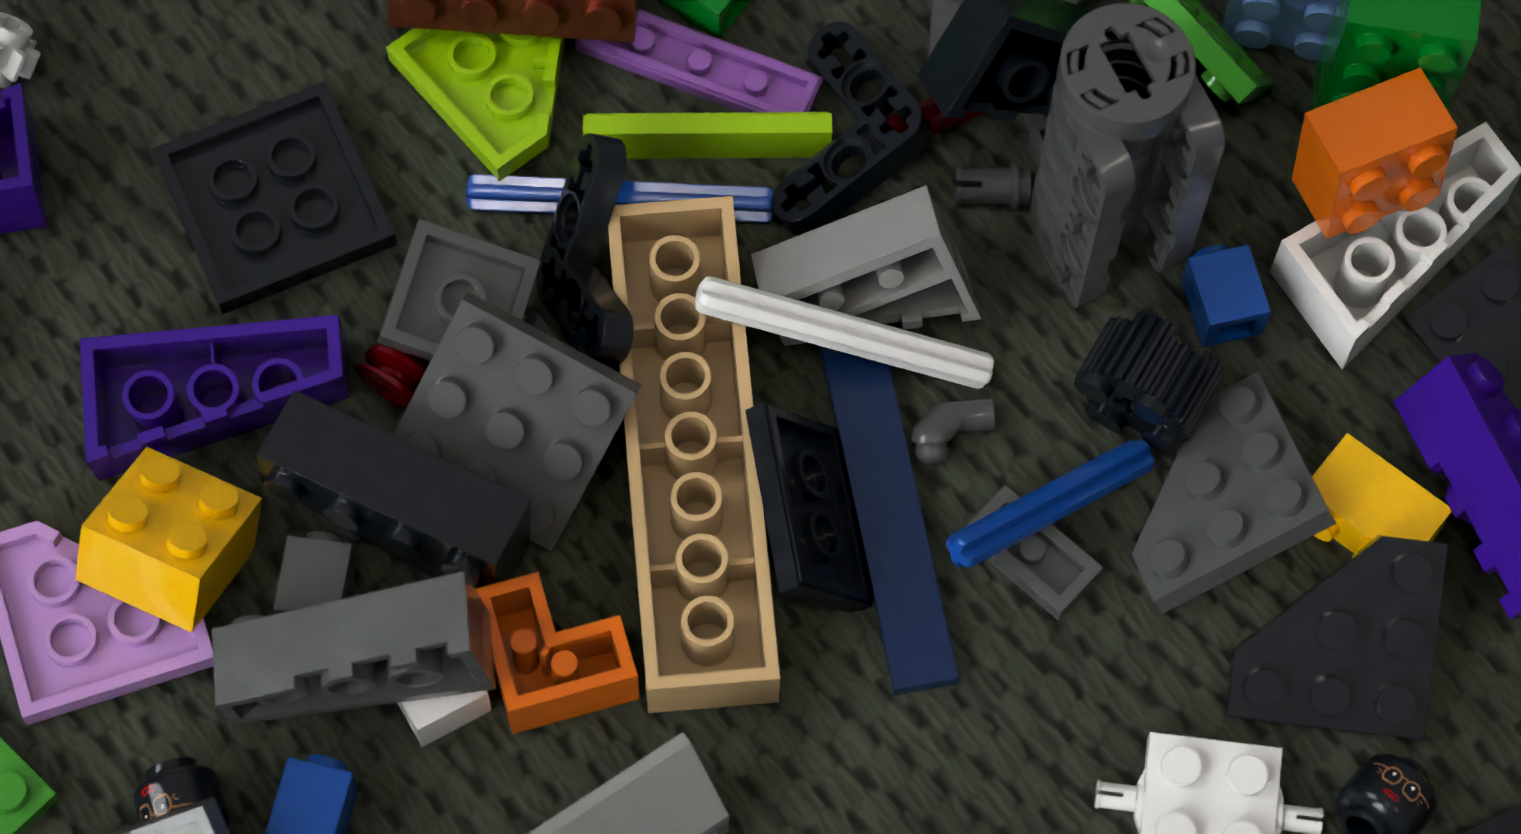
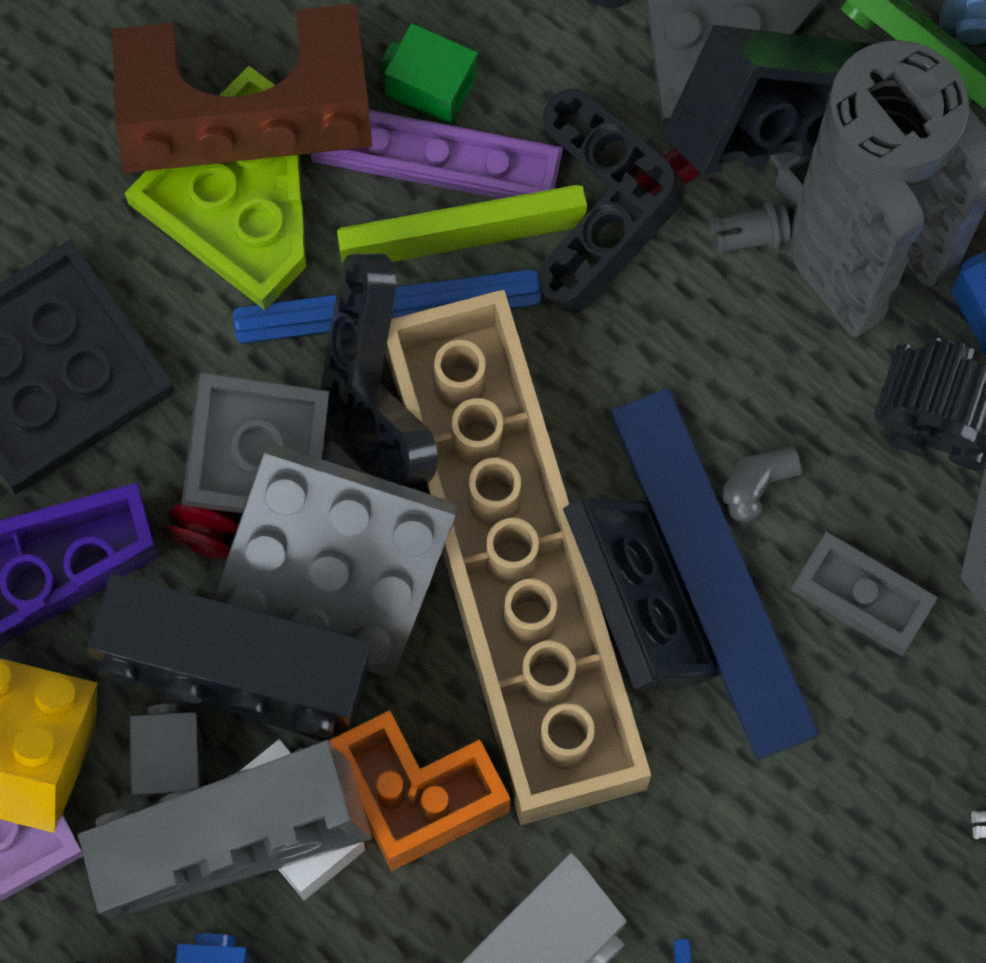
camera: 10 degrees left, 5 degrees up
(843, 332) = (638, 408): white axle -> none
(874, 265) = (647, 340): light grey wedge -> none
(1050, 503) = (875, 544): blue axle -> none

